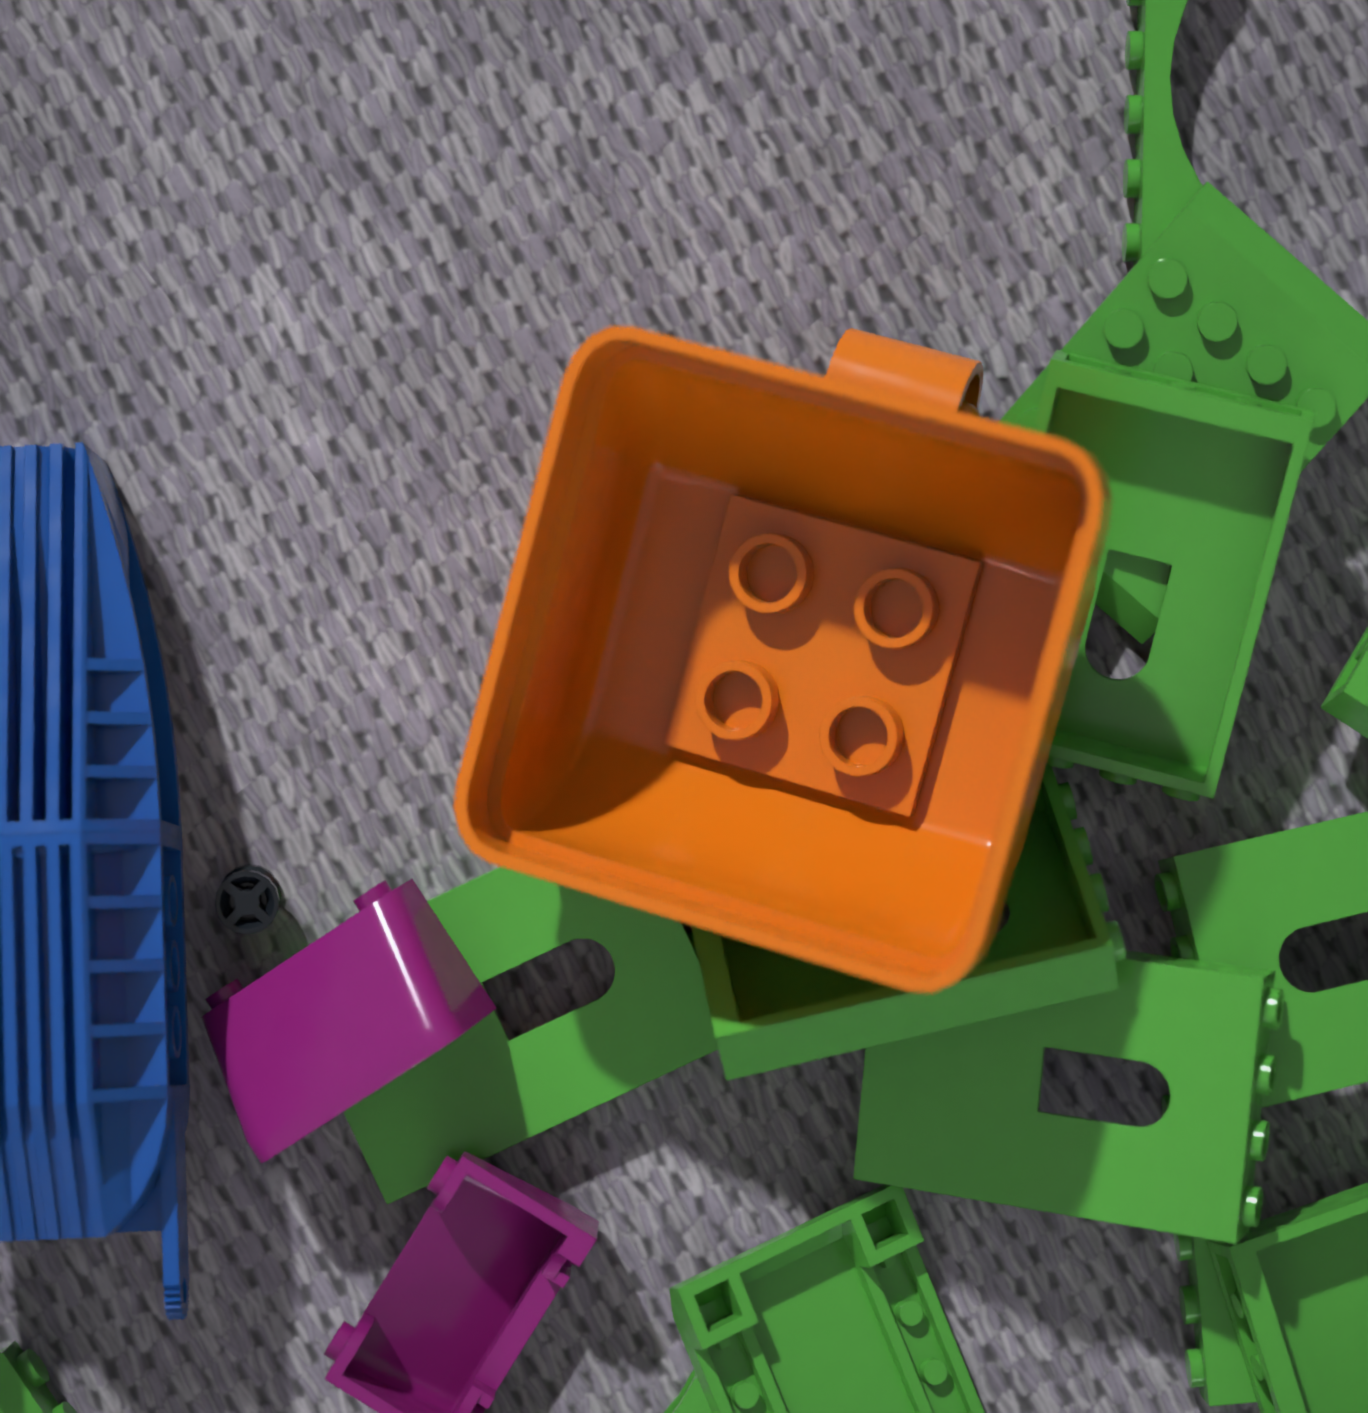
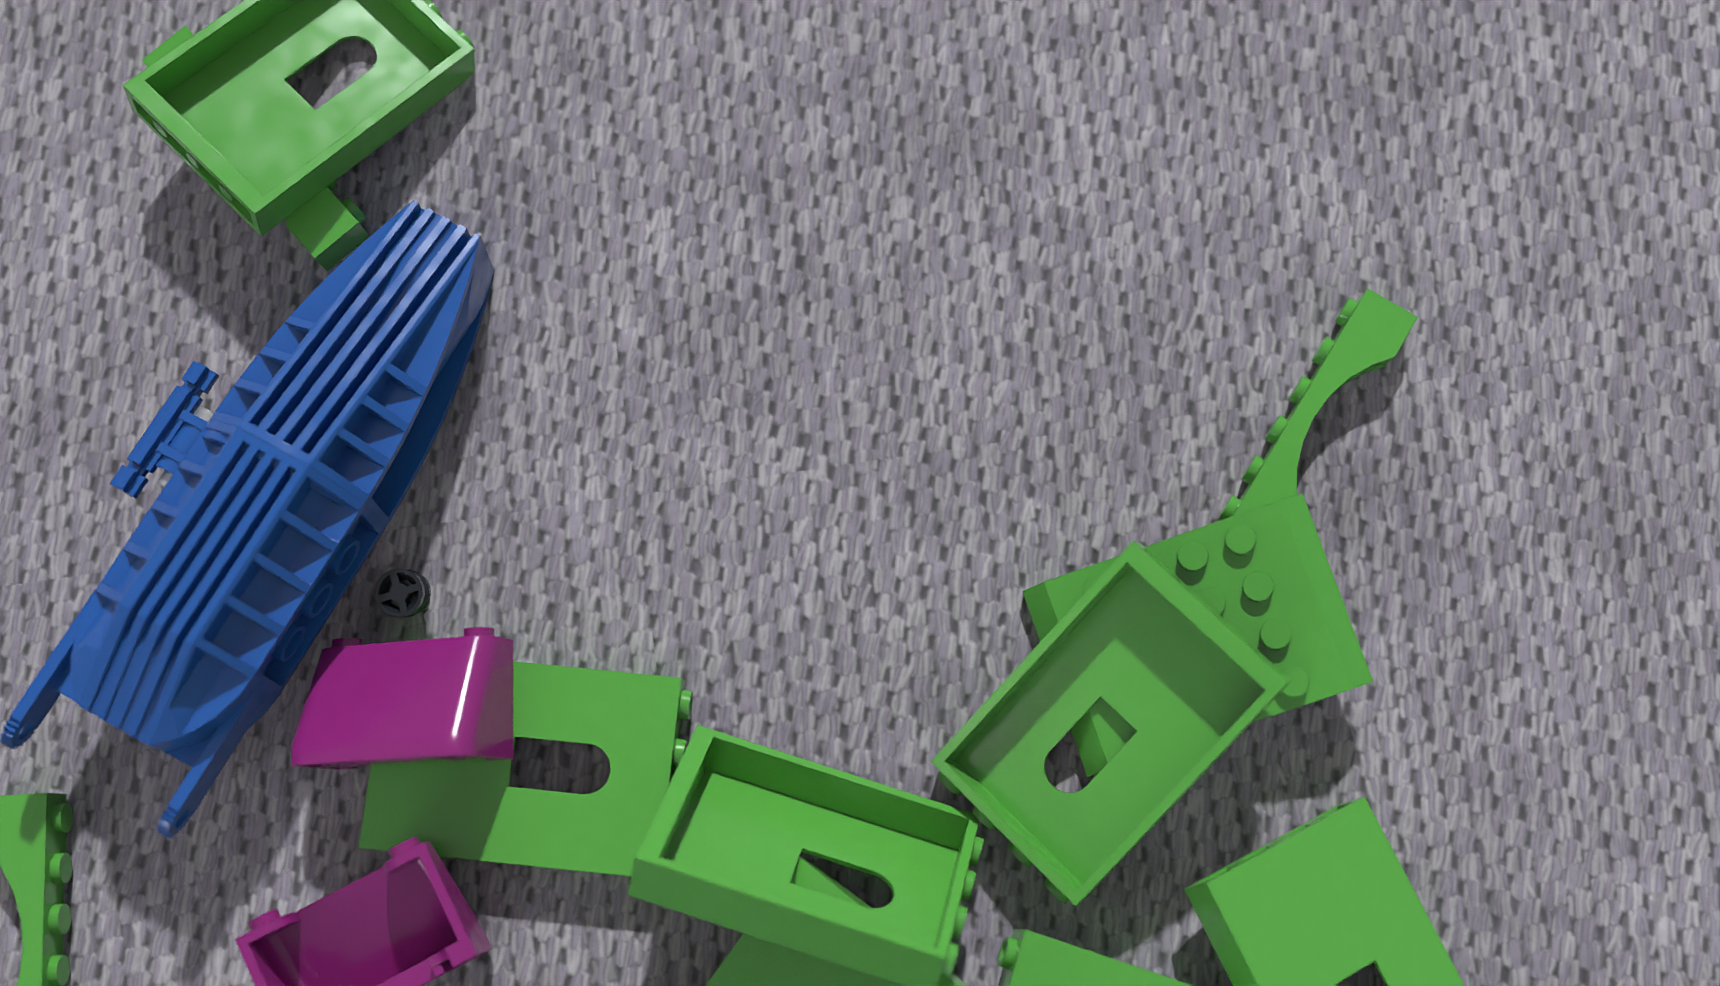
camera: 30 degrees right, 10 degrees down
(785, 649) = (841, 624): orange piece -> none

